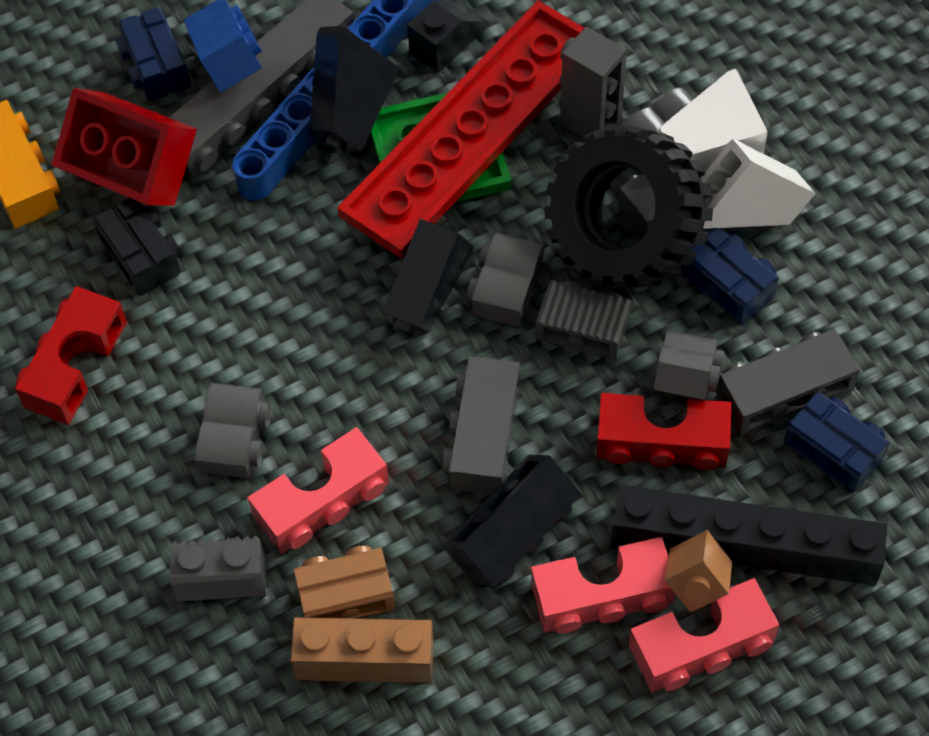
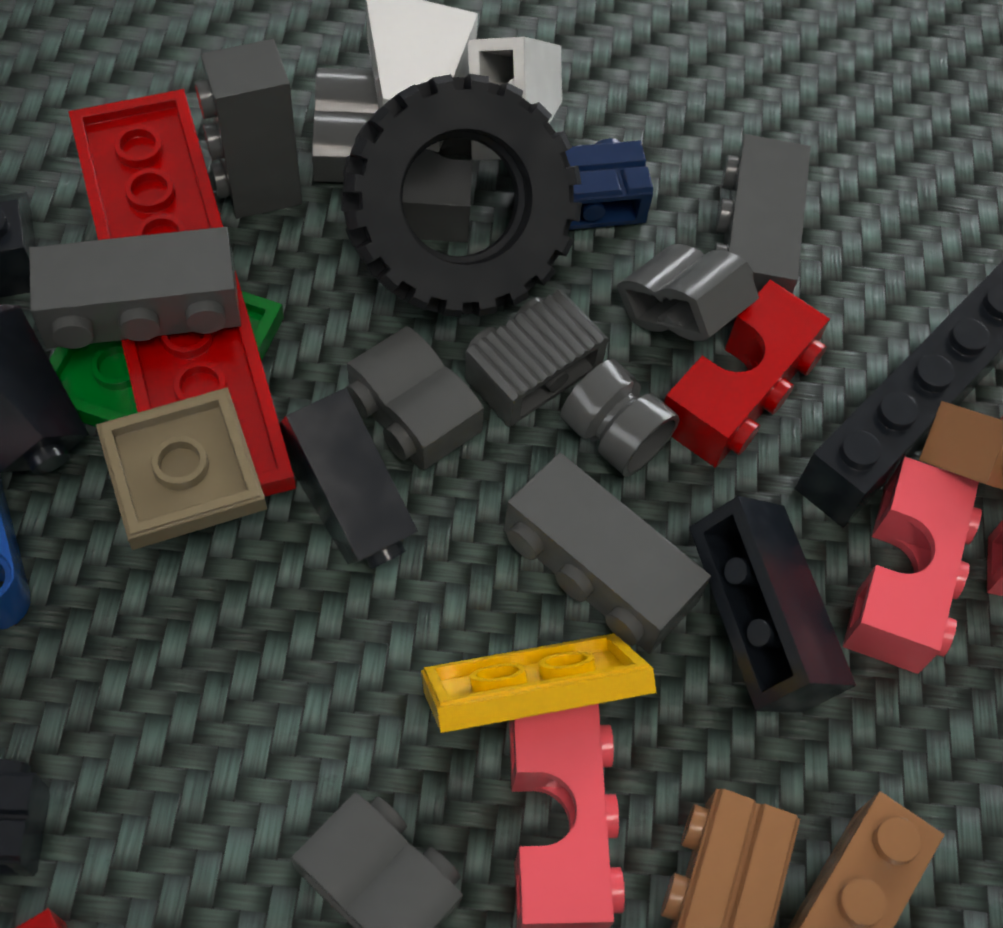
camera: 65 degrees left, 0 degrees up
(364, 198) = (180, 468): none -> dark tan tile
(376, 430) = (535, 682): none -> yellow tile
(444, 107) = (134, 287): none -> dark grey brick
(574, 382) = (610, 410): none -> dark grey wheel
(837, 441) = (869, 227): dark blue brick -> none

